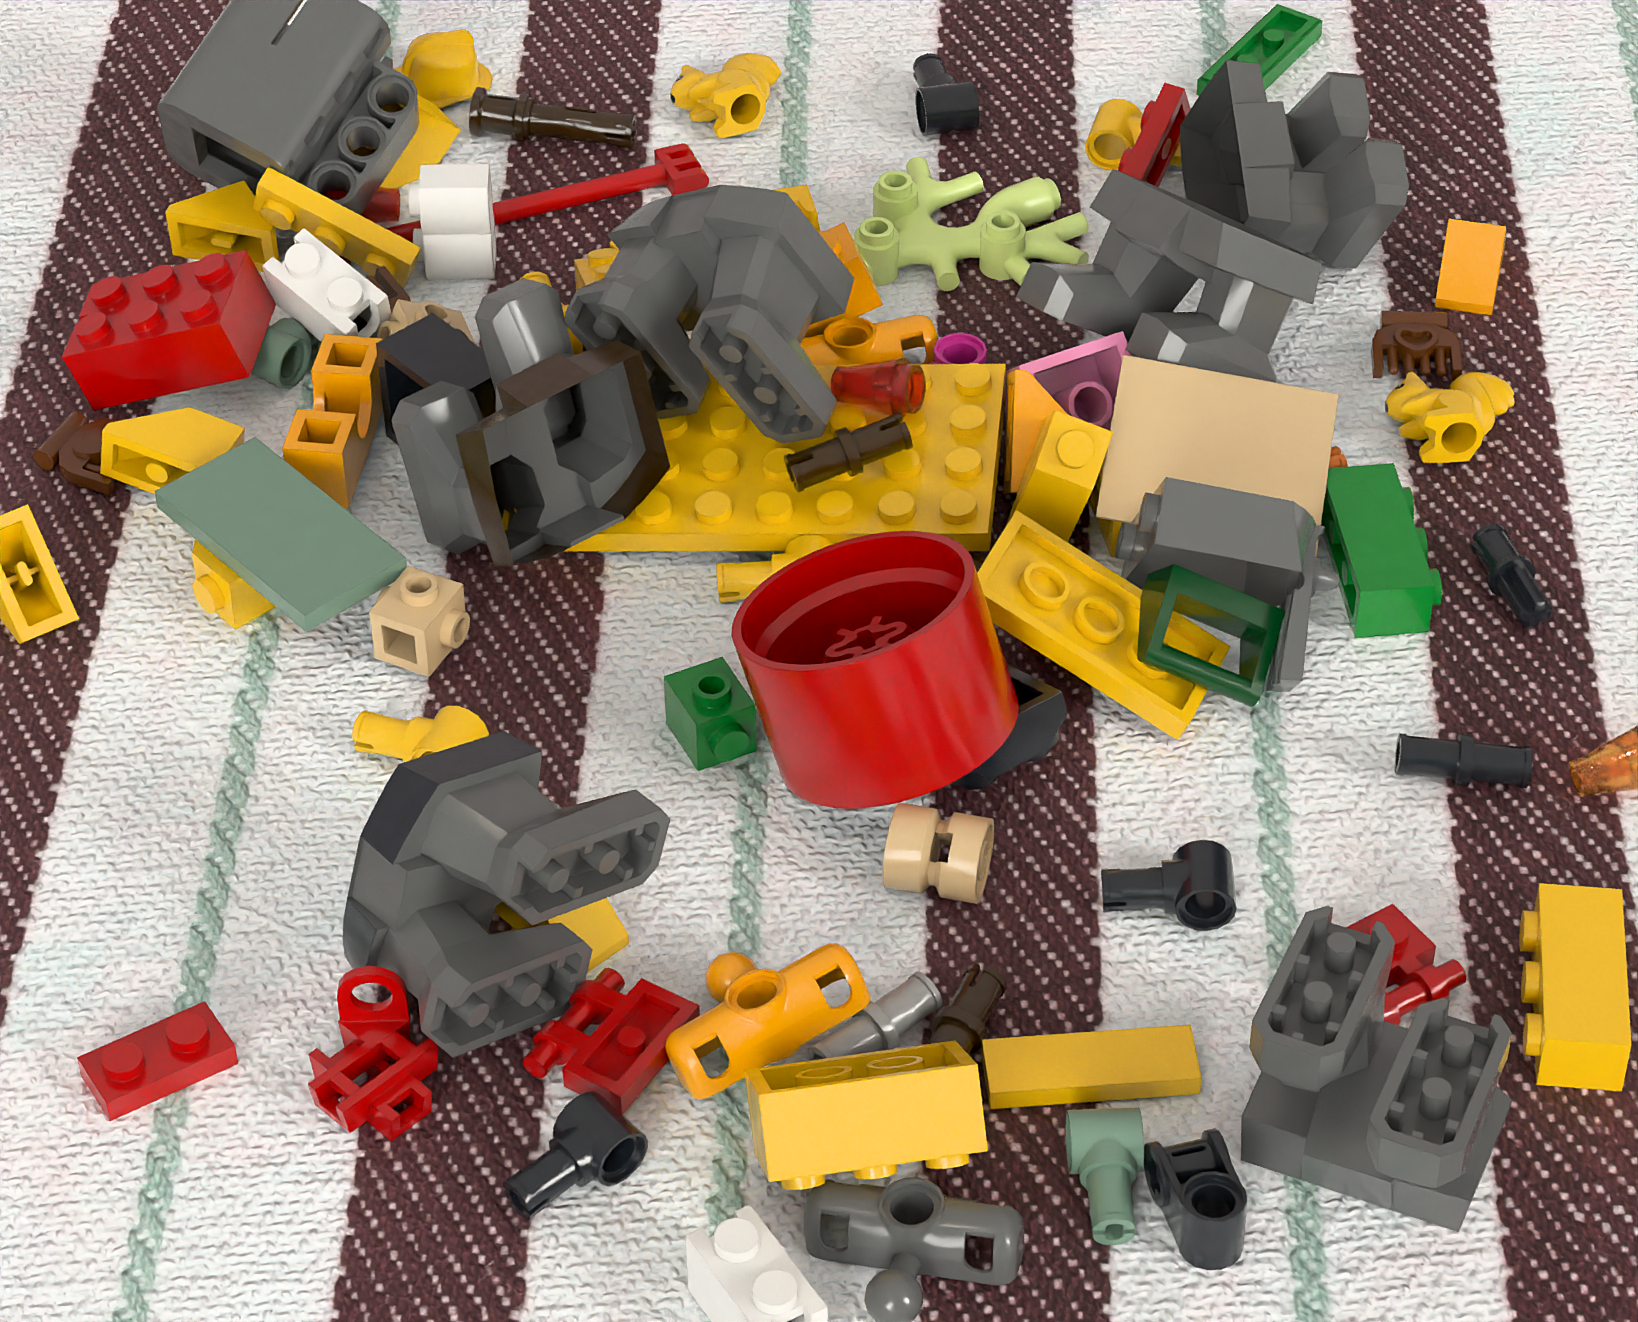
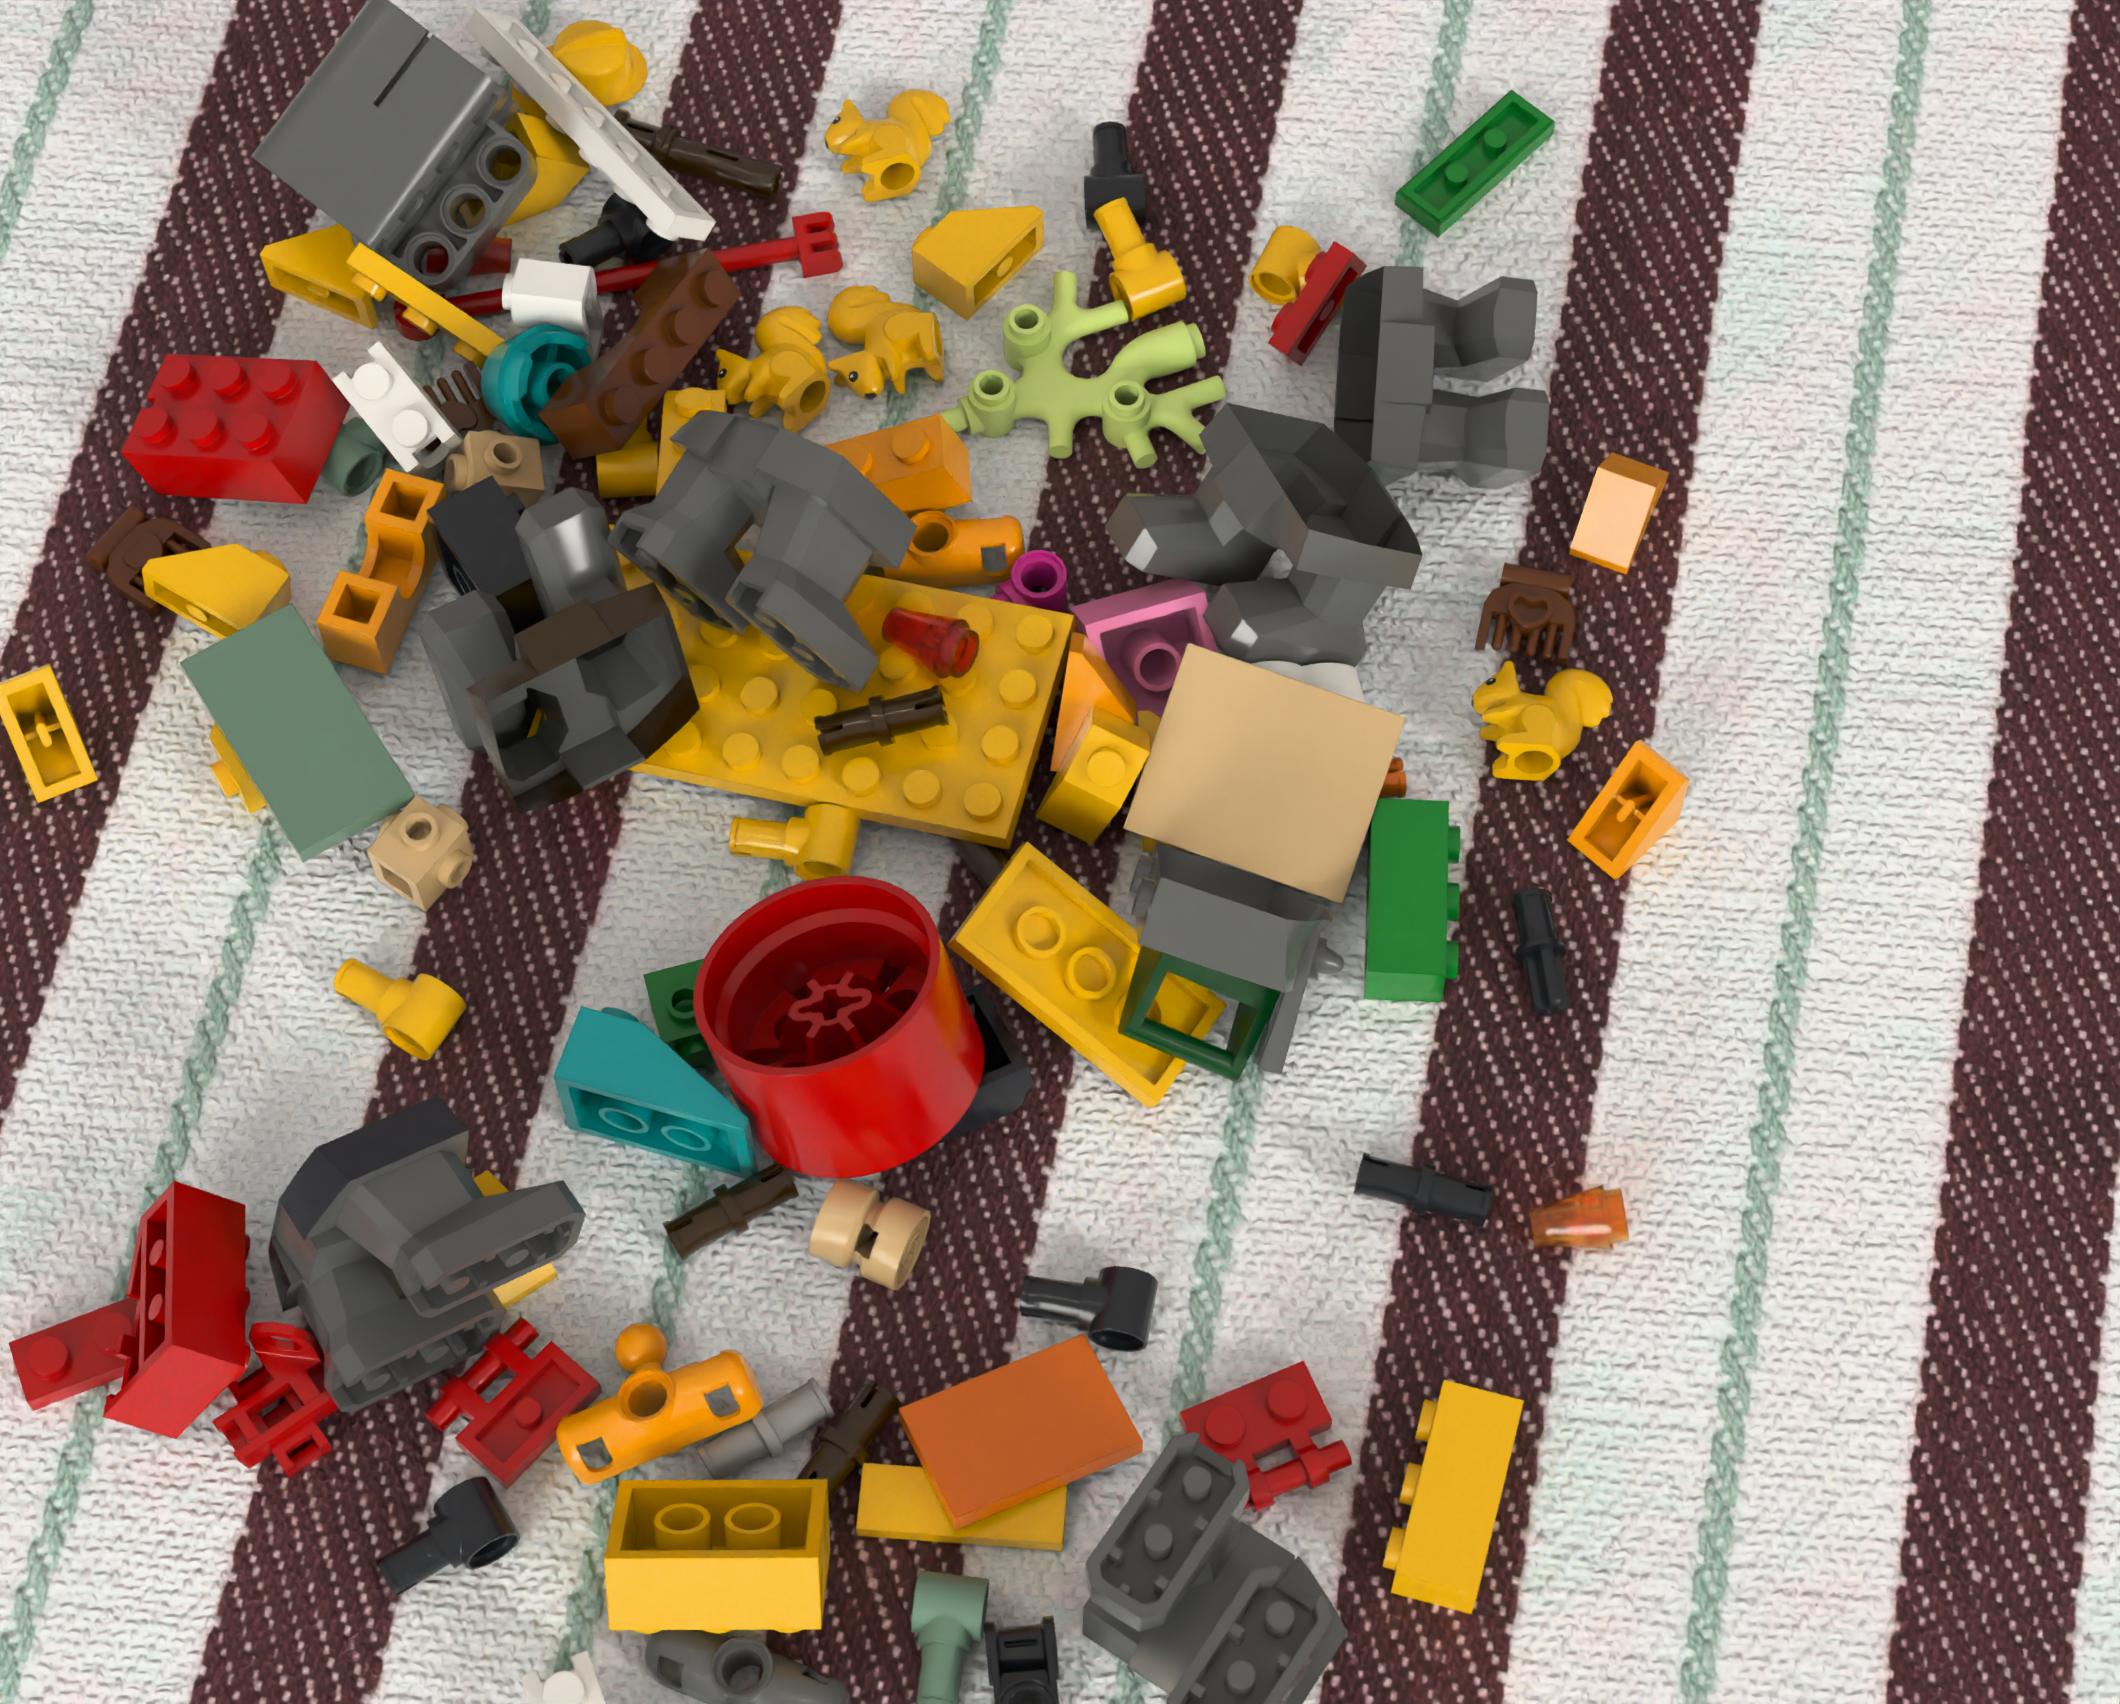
camera: 10 degrees right, 20 degrees up
(265, 998) = (187, 1312): none -> red wedge
(453, 264) = (525, 375): none -> teal cone
(476, 101) = (597, 133): none -> white plate
(514, 166) = (618, 234): none -> black pin
(560, 225) = (612, 396): none -> reddish brown arch
(707, 764) = (639, 1092): none -> teal slope
(792, 859) = (730, 1209): none -> dark brown pin
(832, 153) = (975, 254): none -> yellow slope
(982, 147) = (1141, 275): none -> yellow pin
(1132, 991) = (1020, 1431): none -> orange tile
(1563, 457) = (1631, 811): none -> light orange slope

